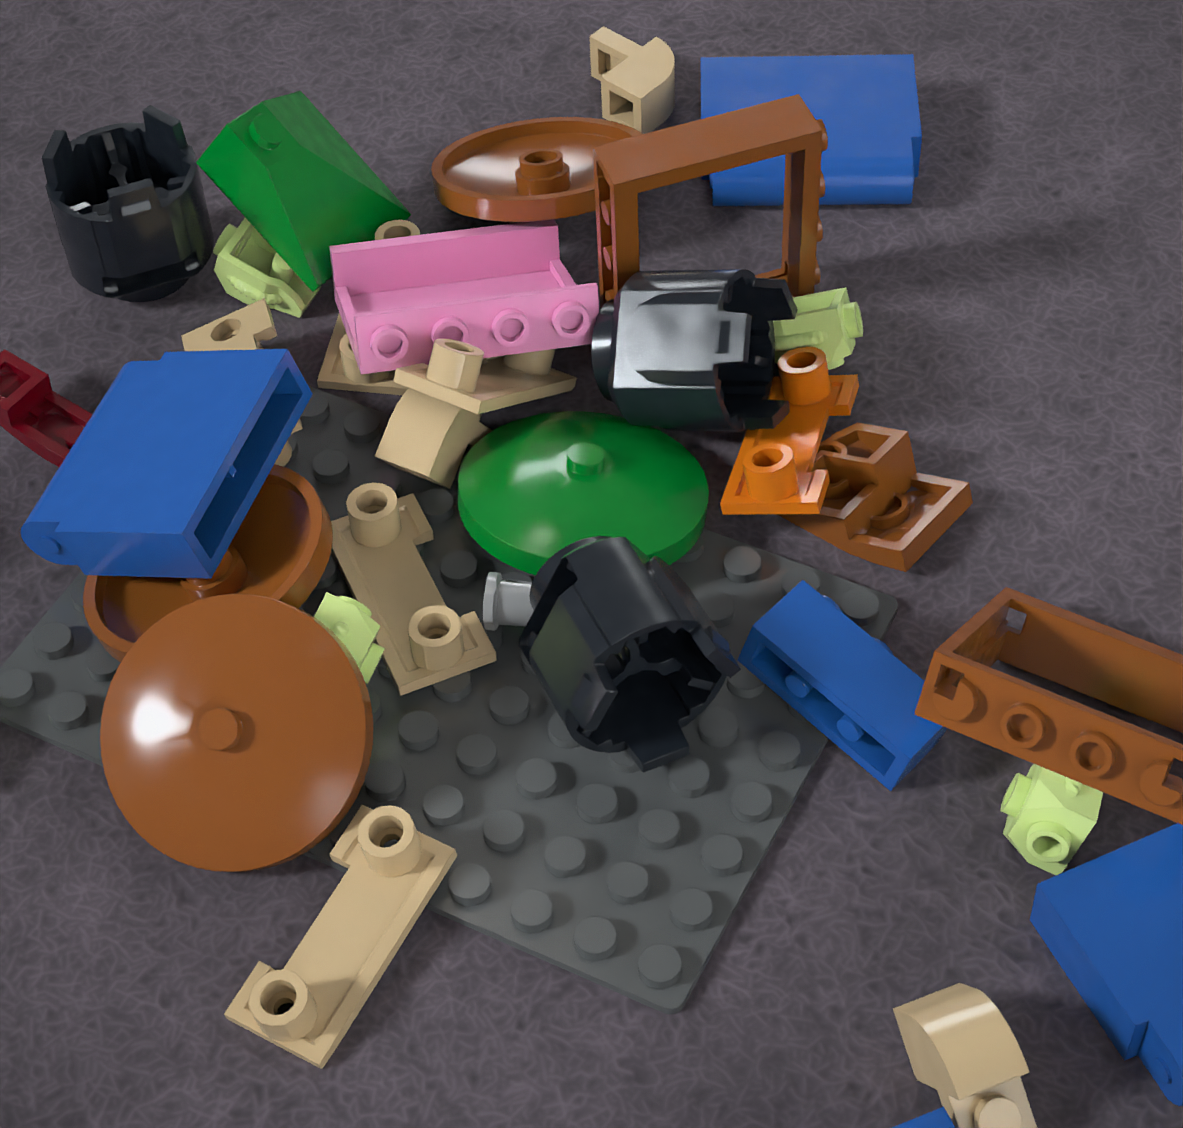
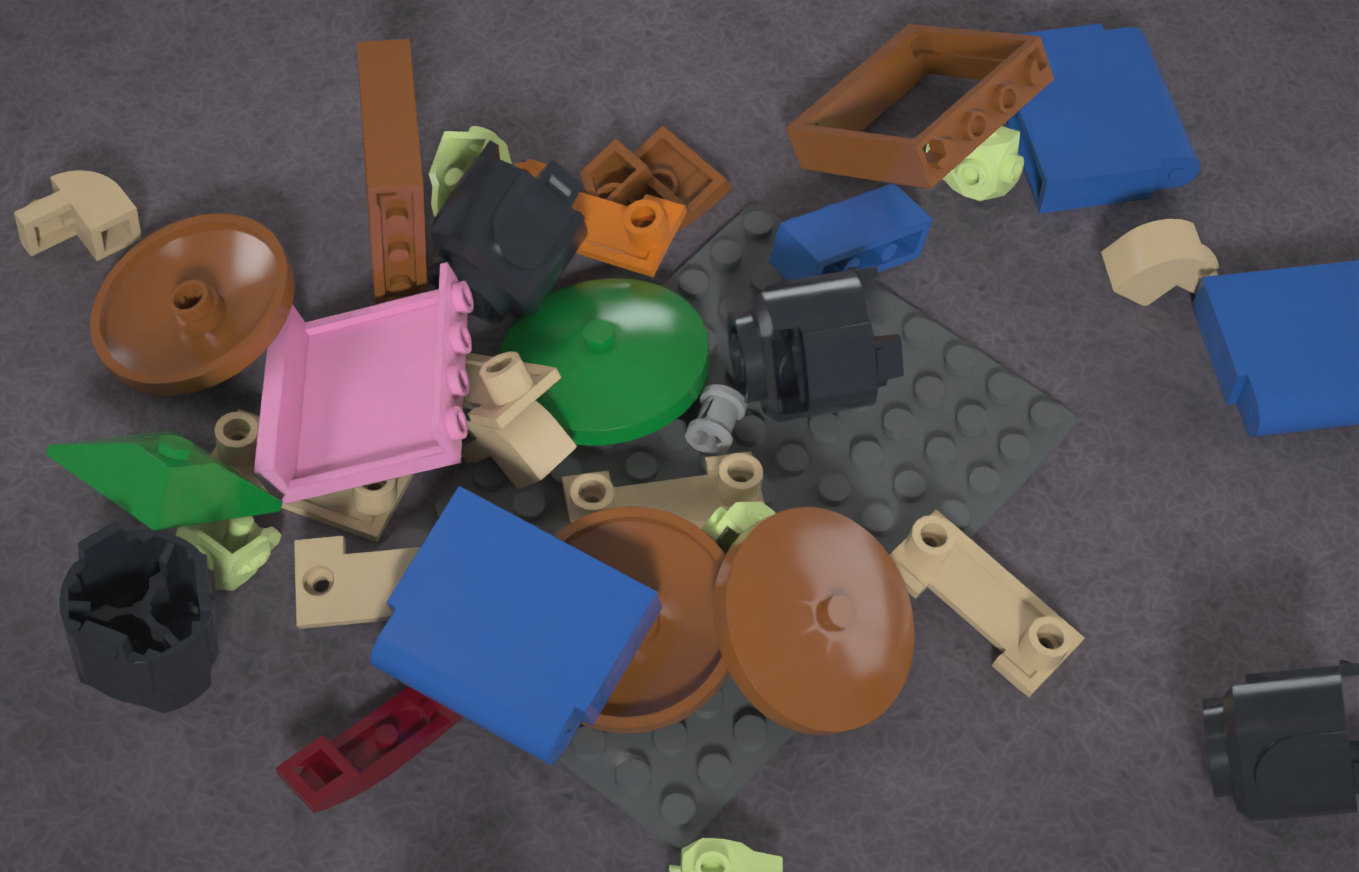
camera: 85 degrees left, 5 degrees up
(867, 114) = (212, 113): blue piece -> none

